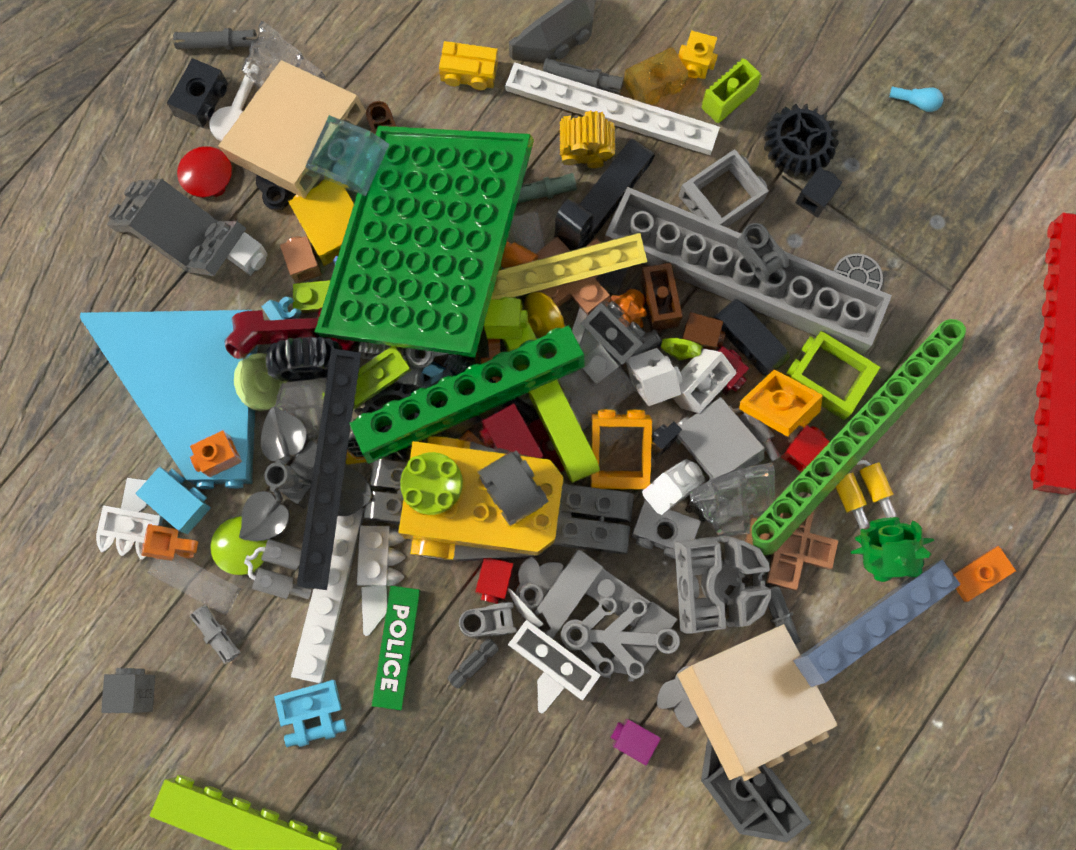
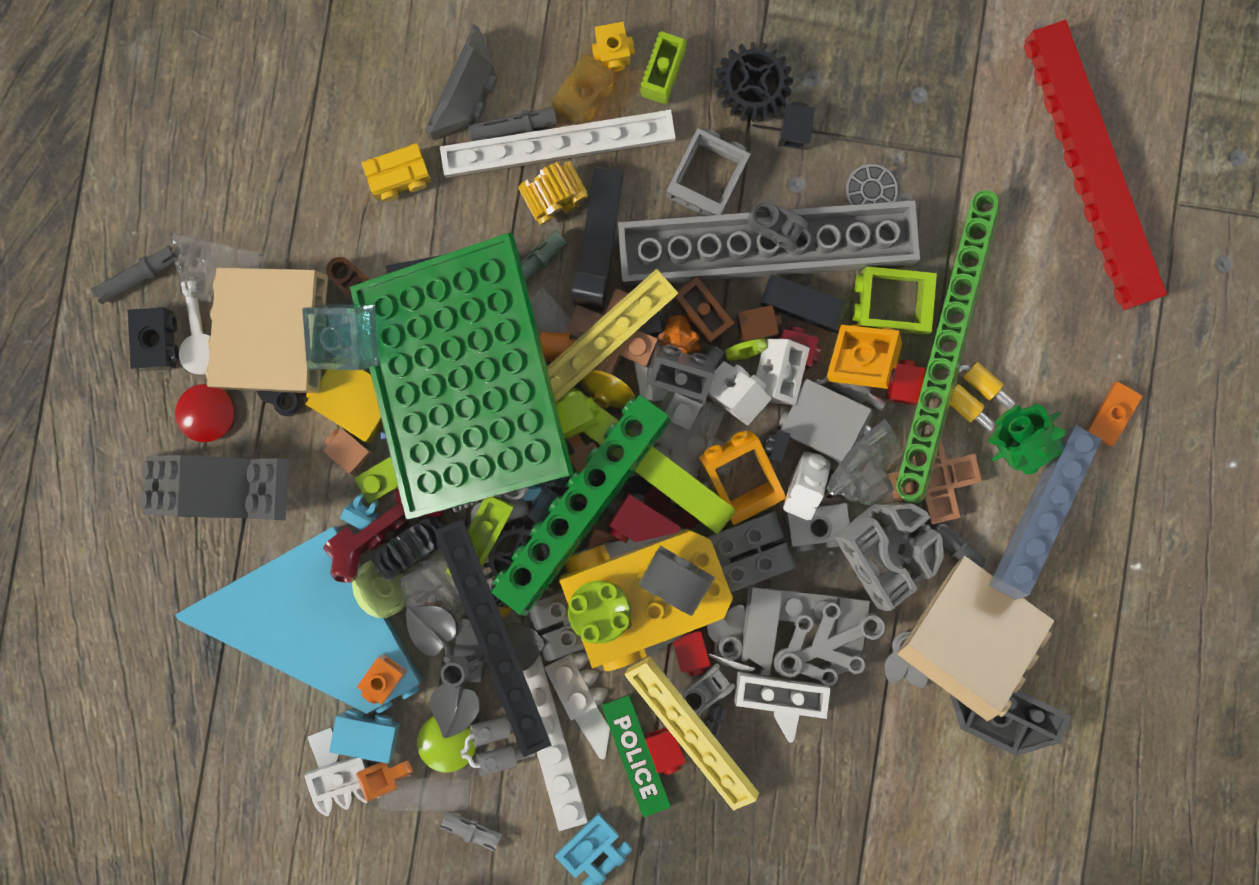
camera: 30 degrees left, 10 degrees up
(248, 254) = (299, 472): white brick -> none
(424, 655) = (665, 751): none -> red brick
(455, 650) = (691, 733): none -> light yellow plate
(634, 741) = (886, 724): magenta brick -> none

